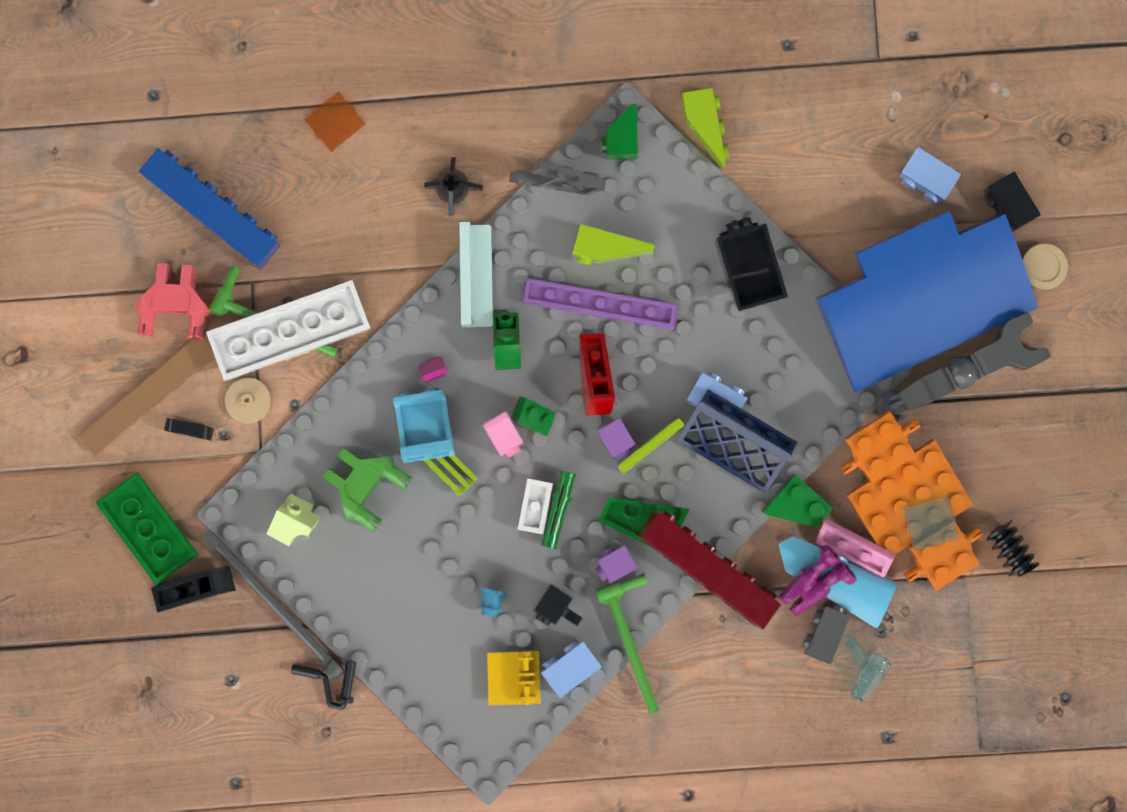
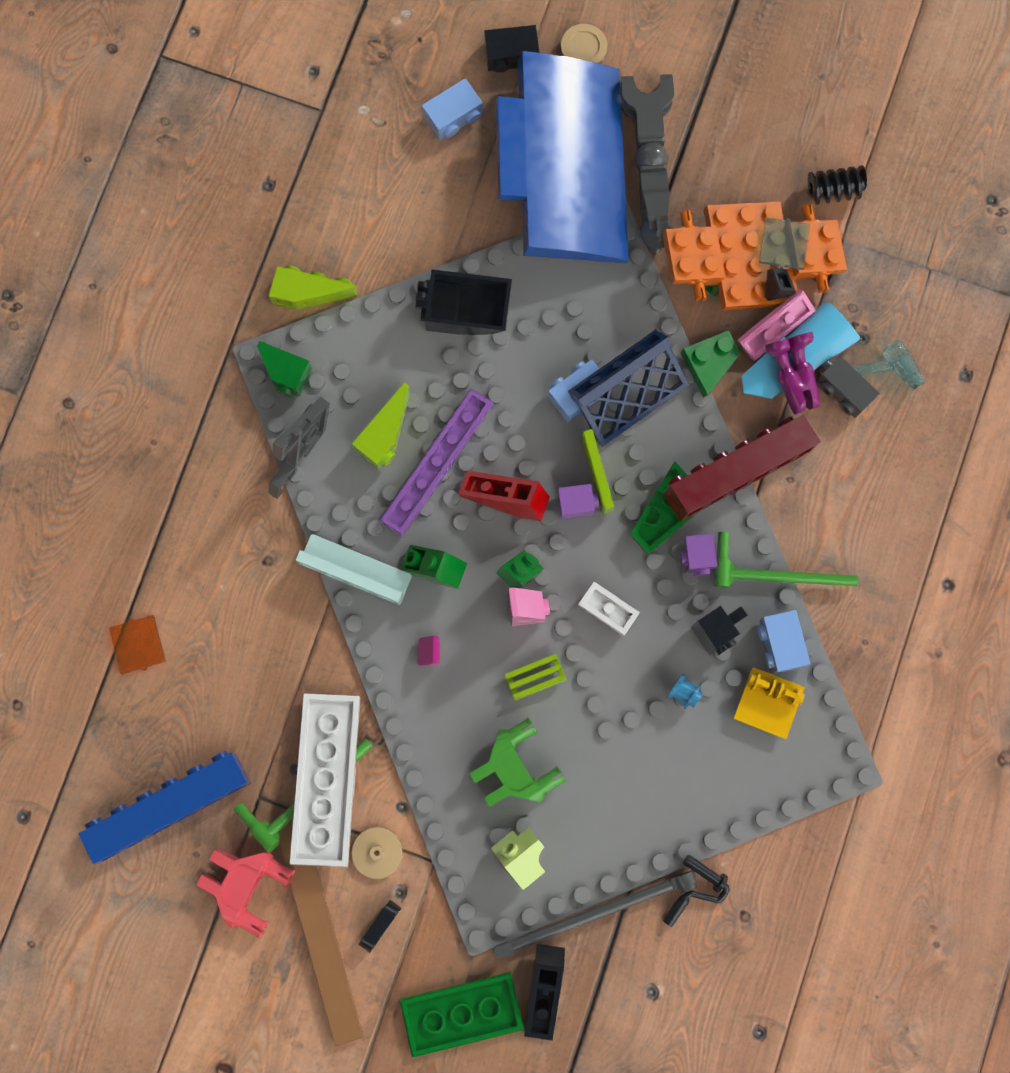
camera: 70 degrees left, 5 degrees down
(423, 425) = (481, 683): medium azure panel -> none
(452, 186) = (256, 555): black piece -> none
(565, 480) = (594, 567): green pin -> none
(890, 534) = (778, 284): none -> black slope

